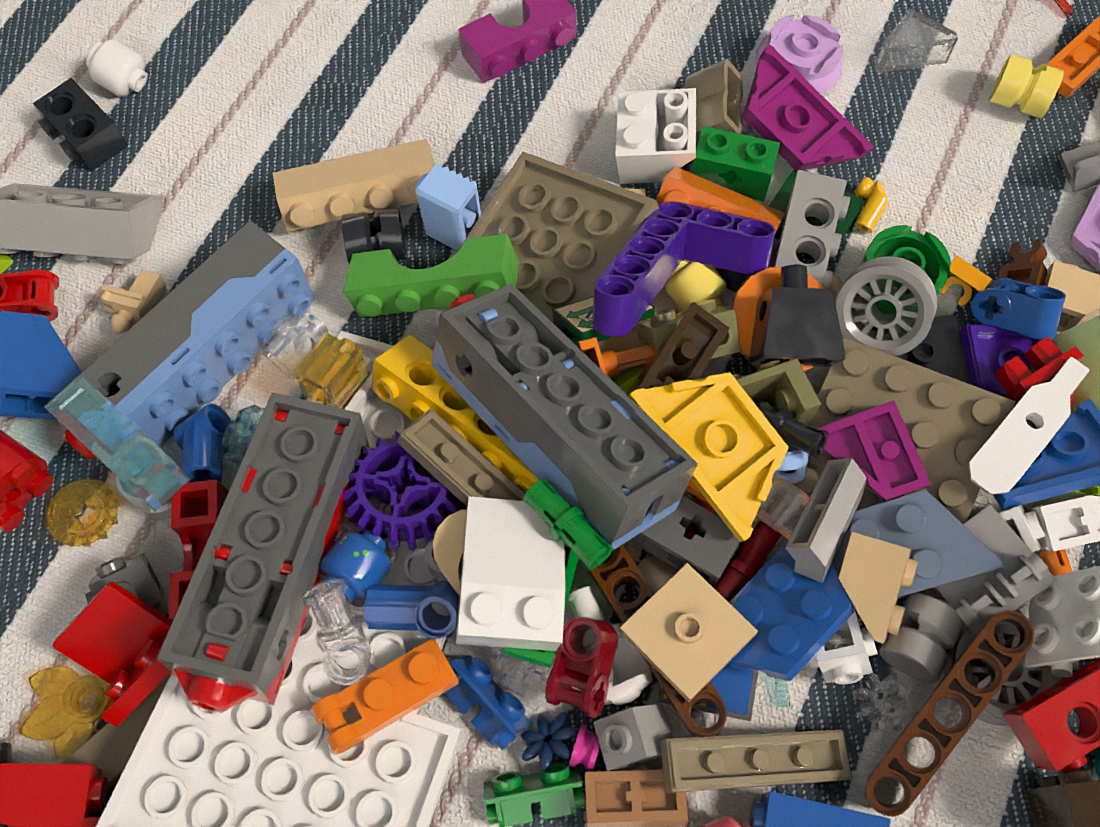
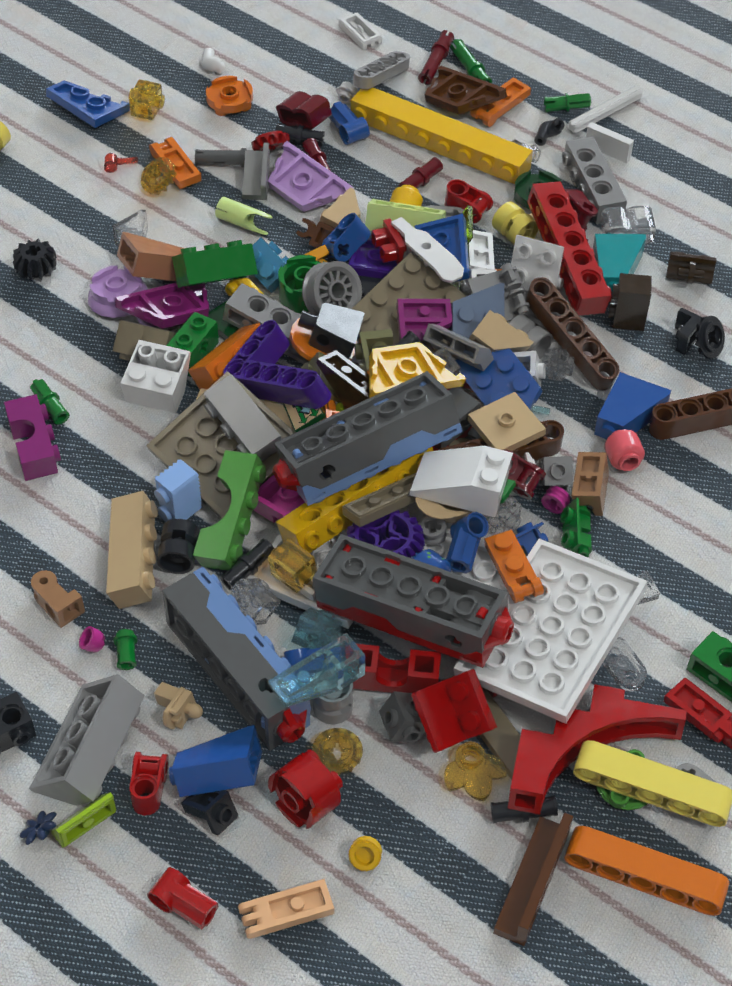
camera: 80 degrees left, 15 degrees down
(212, 224) = (125, 642): none -> green pin
(221, 183) = (91, 639): none -> dark pink hinge
(275, 128) = (56, 602): none -> medium nougat leg
(338, 630) = (454, 566): clear connector -> none
(354, 324) = (247, 564): none -> black pin
(548, 739) = (547, 516): dark blue plant -> none
(567, 524) = (442, 442): green pin -> none
(571, 242) = (241, 418): none -> light grey brick
(586, 38) = (51, 400): none -> green axle
(754, 760) = (579, 423): dark tan tile -> none
(866, 74) = (147, 257): none -> nougat slope
(883, 144) = (214, 263): none -> green brick
(940, 211) = (268, 263): none -> dark azure bracket
(1016, 162) = (239, 214): none -> yellowish green piece
(1026, 86) = (190, 192): light yellow wheel -> none
(1043, 39) = (153, 171): none -> clear yellow gear

